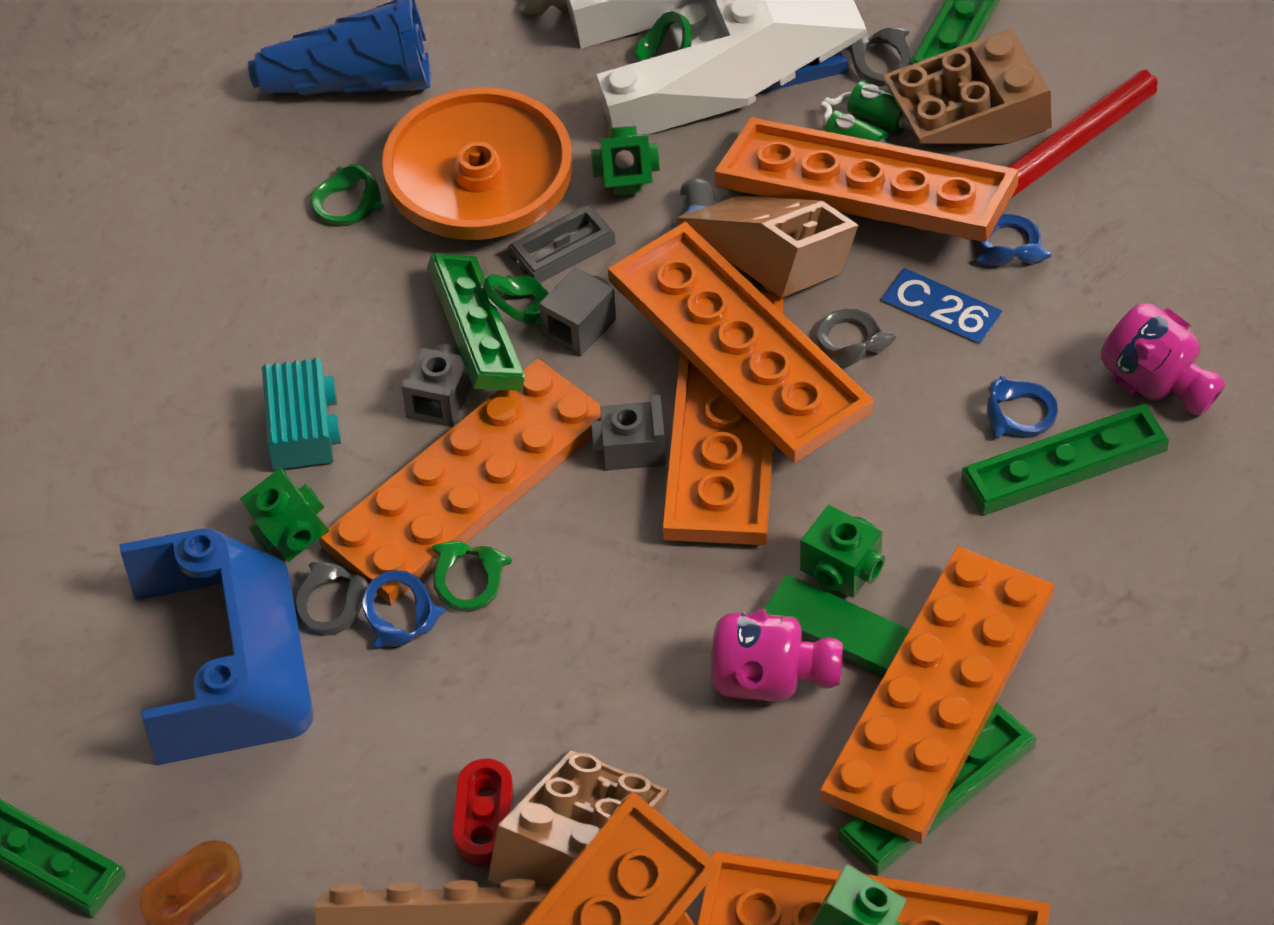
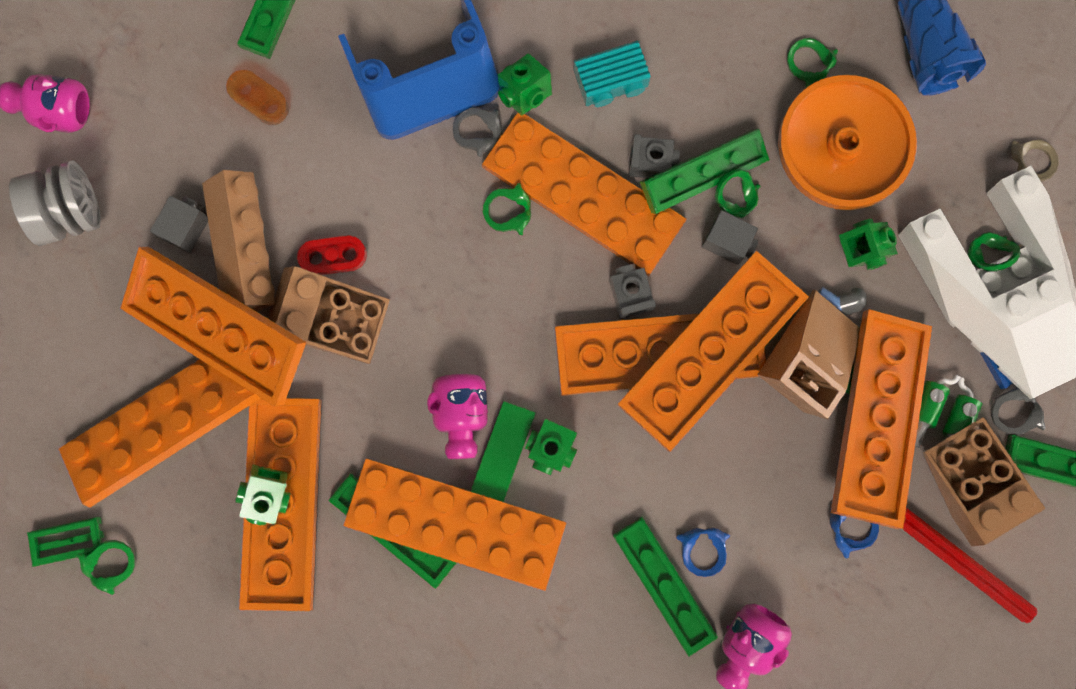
camera: 75 degrees right, 30 degrees up
(425, 610) = (456, 174): blue piece -> none
(566, 248) = (785, 224): dark grey tile -> none
(849, 355) = (748, 444): dark grey piece -> none
(942, 305) = (788, 485): blue sticker -> none

